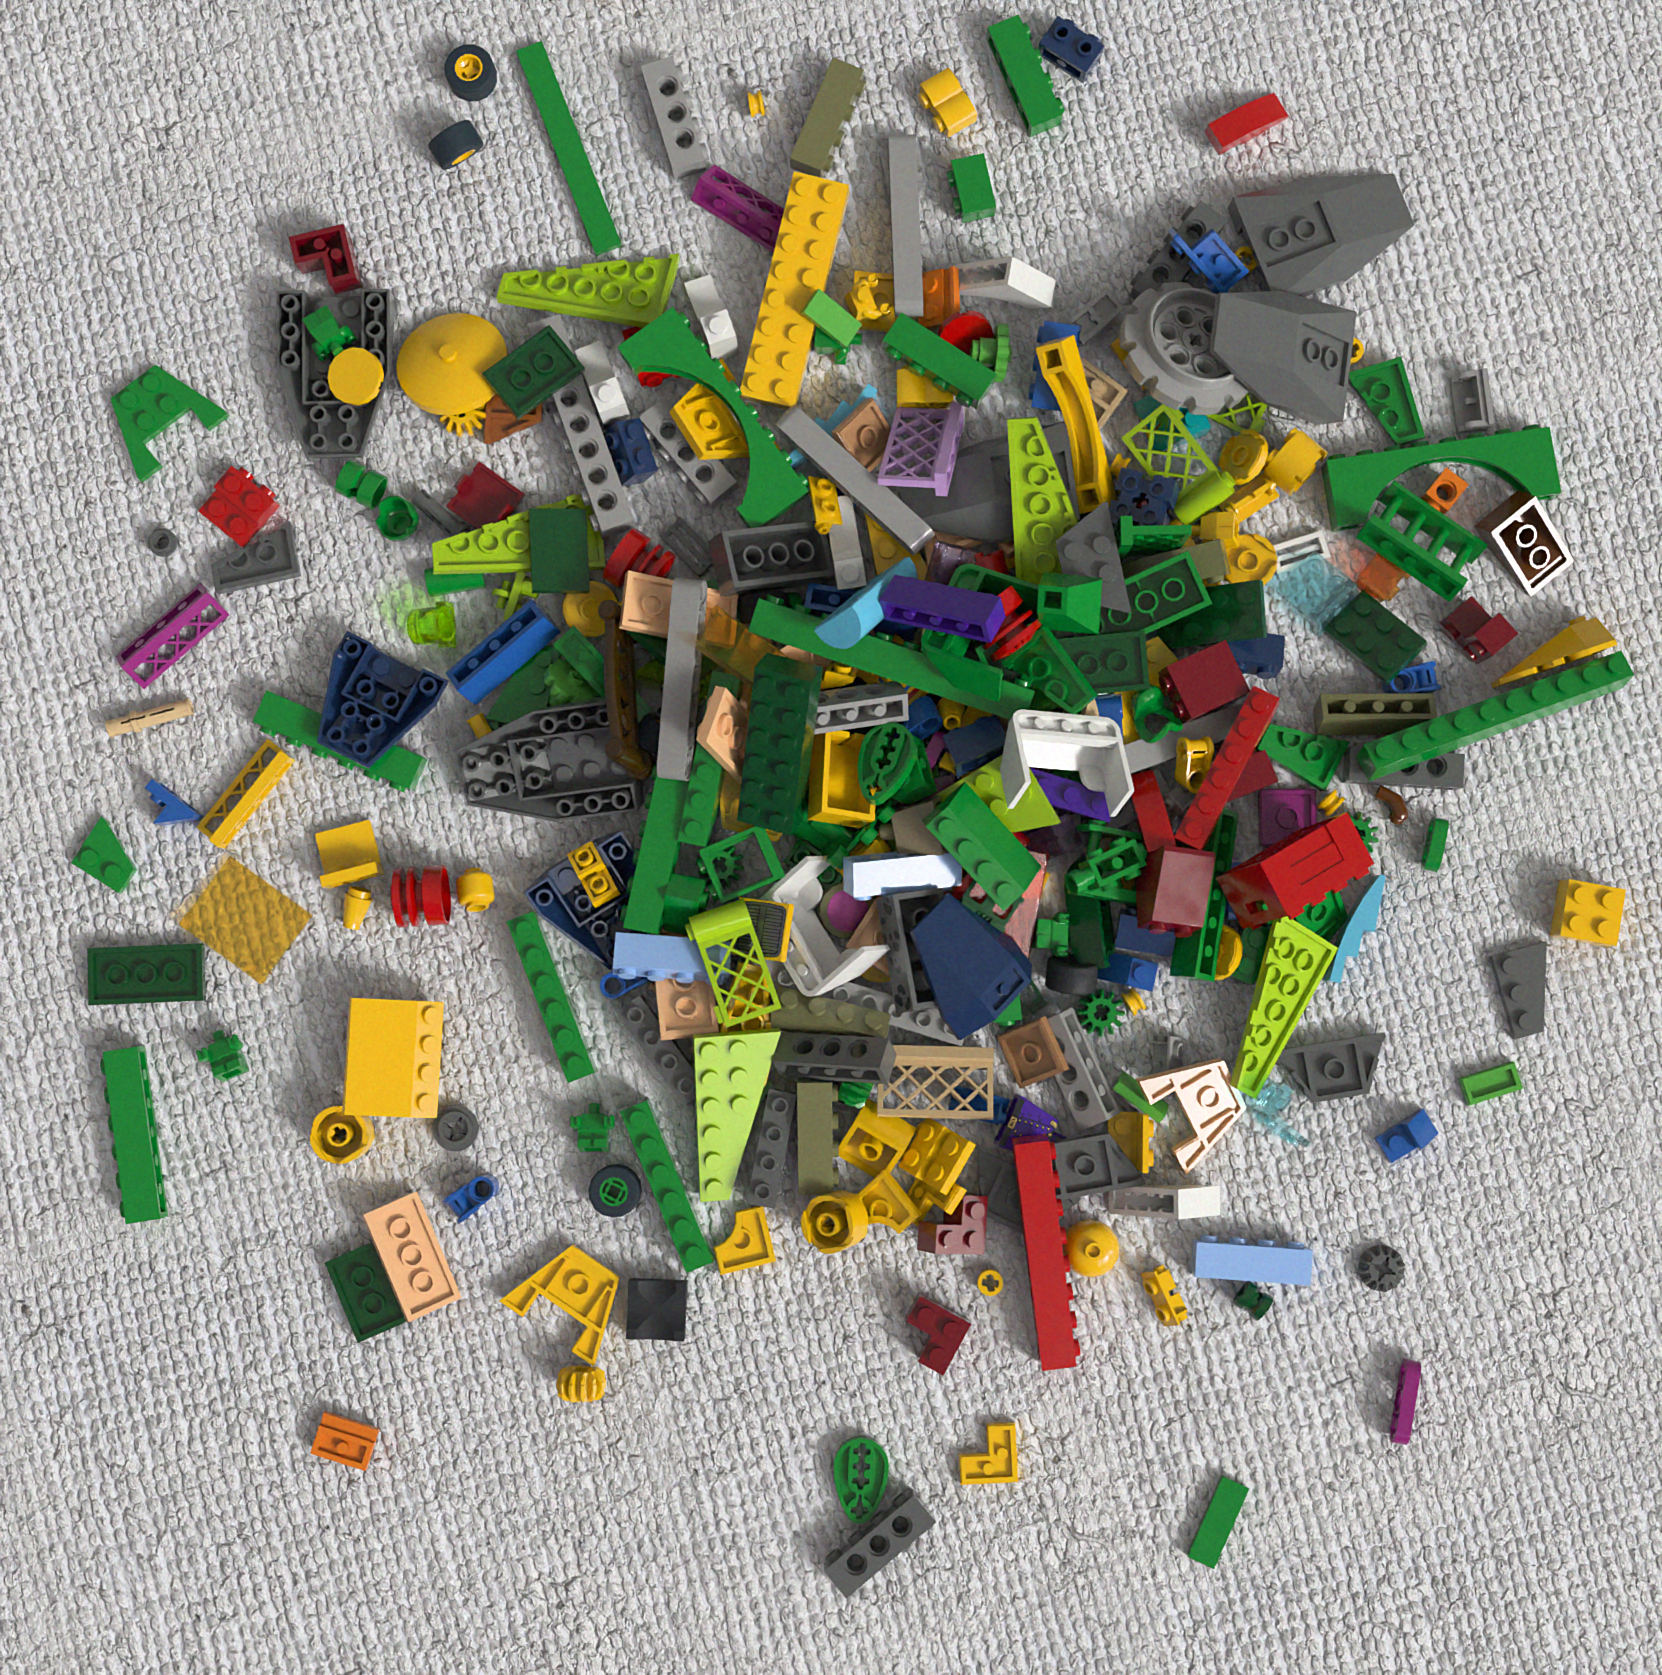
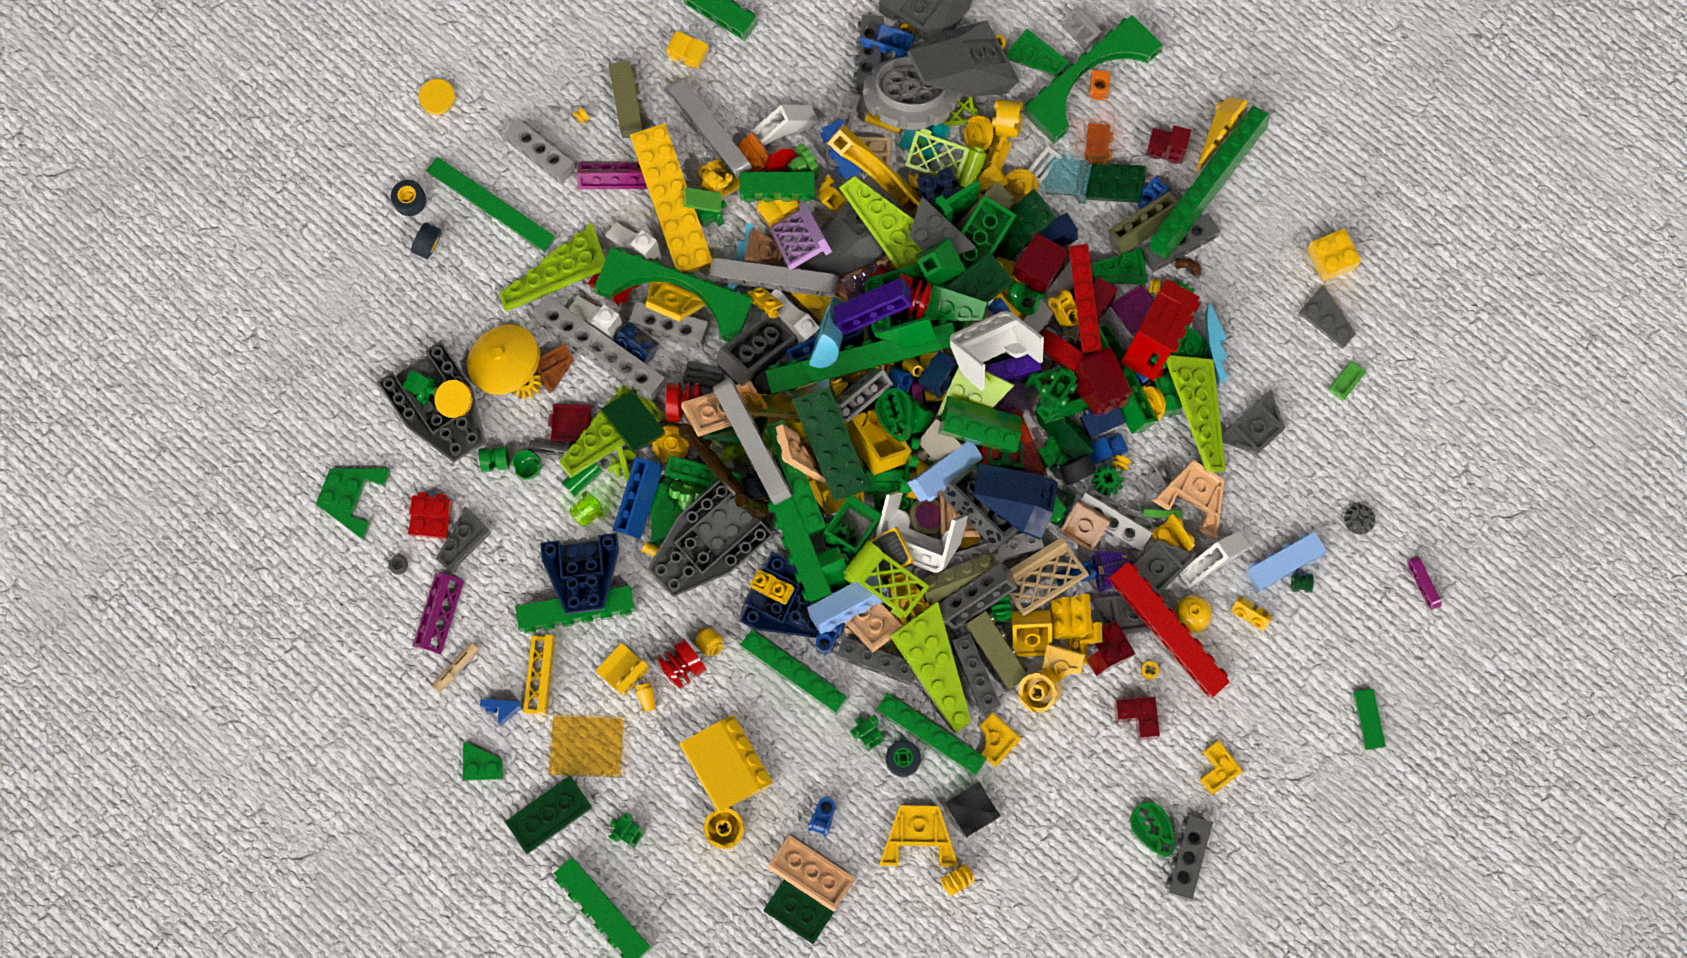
camera: 30 degrees left, 10 degrees down
(328, 250) = (391, 342): dark red brick -> none
(442, 1131) = (793, 777): dark grey gear -> none
(533, 372) = (554, 333): dark green tile -> none
(972, 188) = (732, 86): green brick -> none
(997, 411) = (829, 195): none -> yellow piece
(1273, 1099) = (1240, 474): clear light blue bracket -> none
(1406, 1136) = (1322, 438): blue slope -> none
(1410, 556) = (1106, 127): green fence -> none
(1434, 844) = (1226, 272): green beam -> none
(1525, 541) = (1161, 82): reddish brown slope -> none

